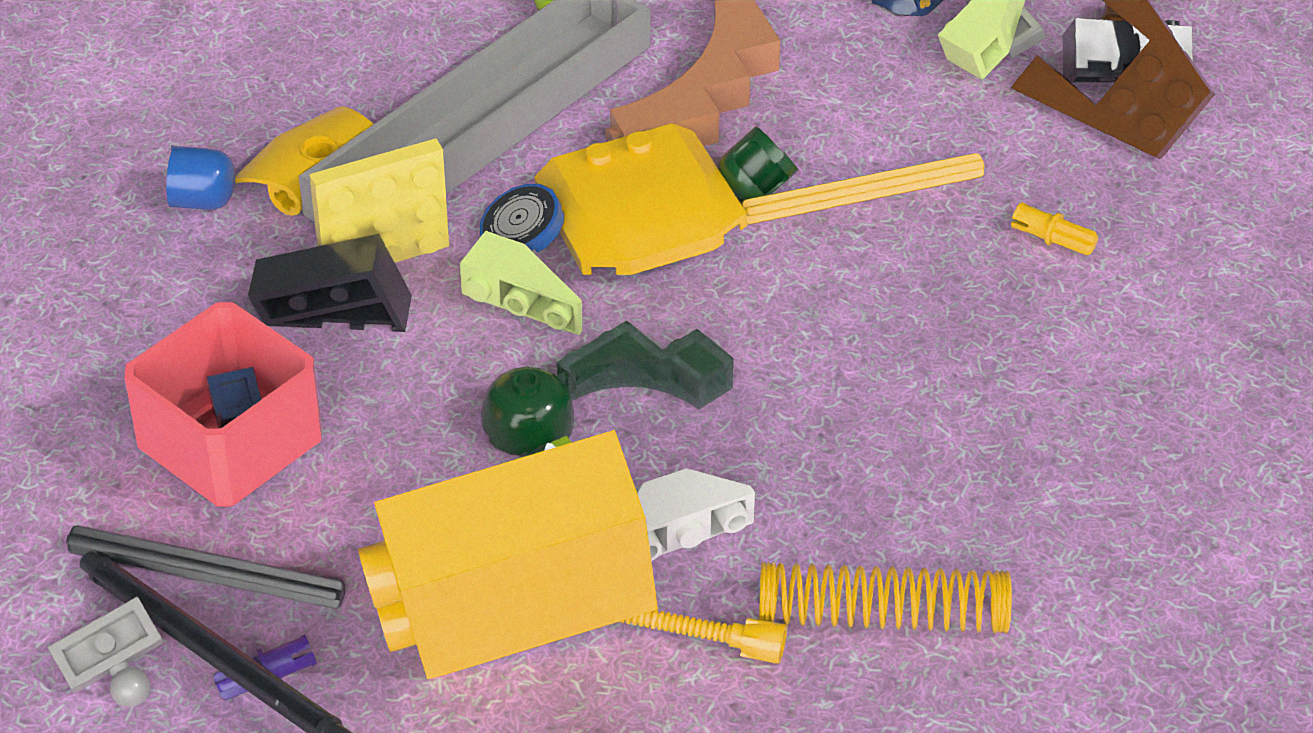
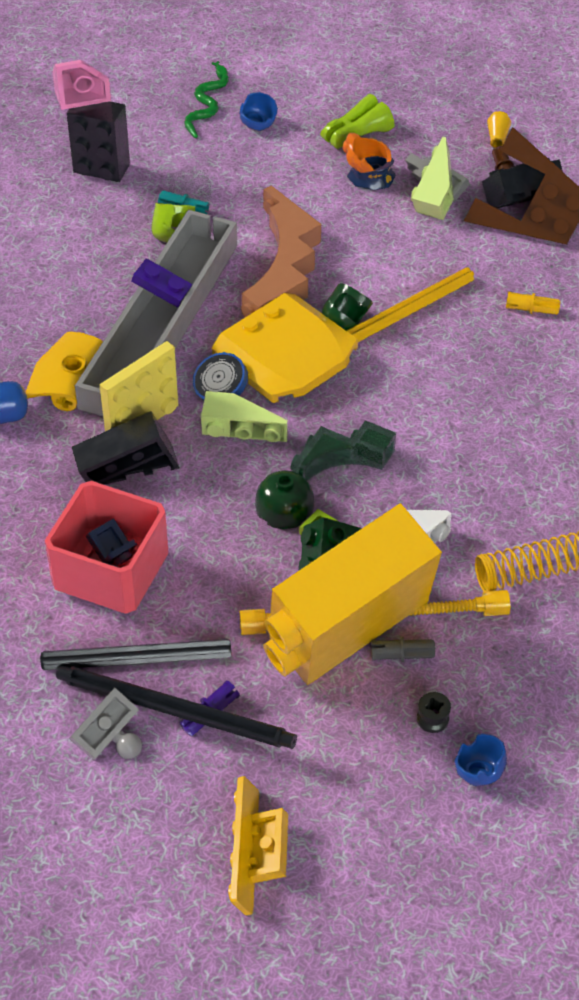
camera: 20 degrees left, 5 degrees up
(494, 64) = (161, 282): none -> dark purple plate
(588, 666) = (403, 649): none -> dark grey axle

